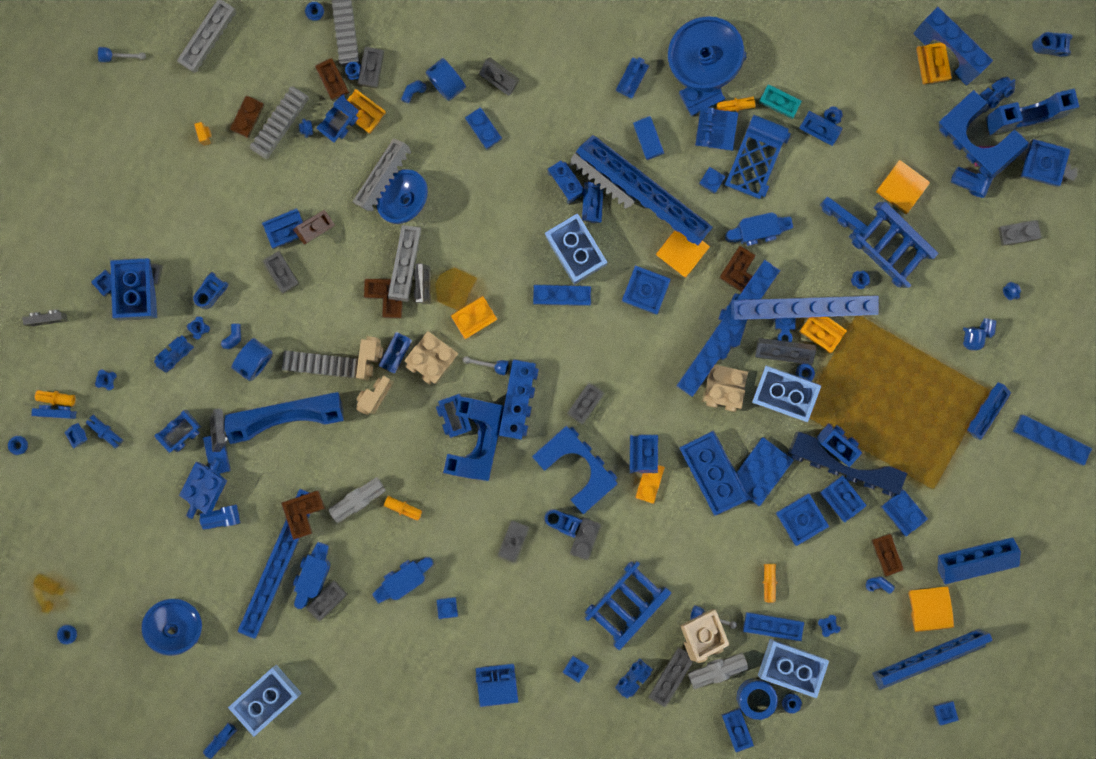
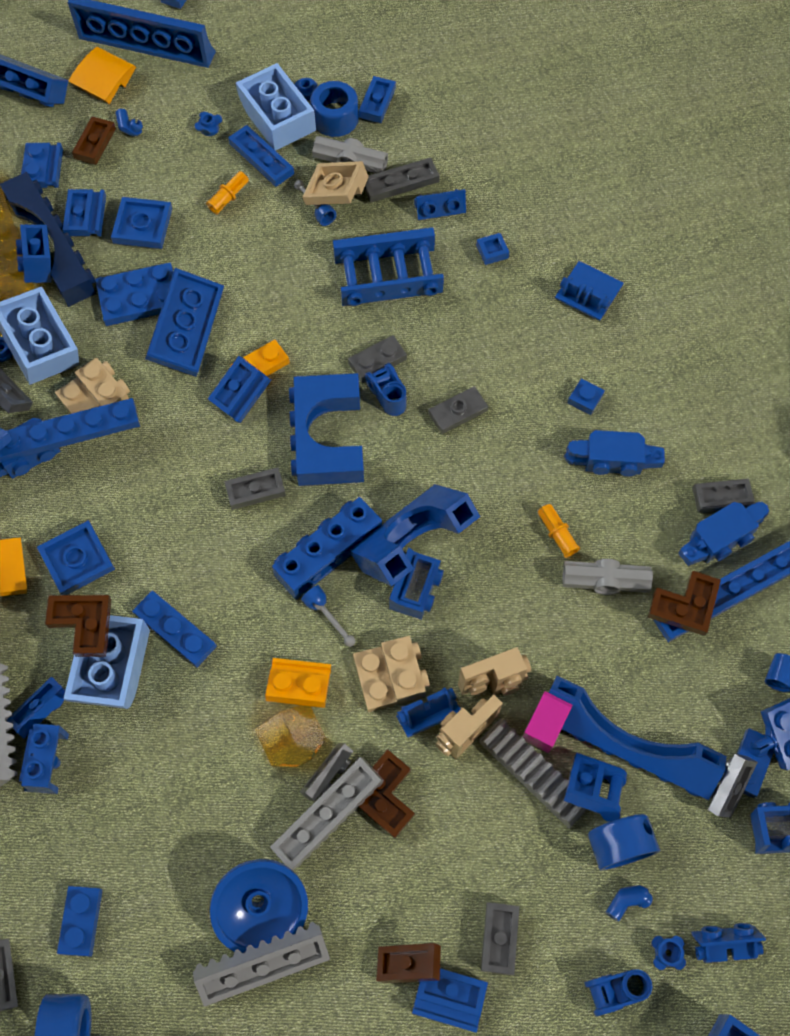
camera: 140 degrees left, 20 degrees down
(290, 375) = (586, 782): none -> blue plate
(330, 390) = (547, 722): none -> dark pink slope
(601, 260) = (87, 615): none -> reddish brown plate

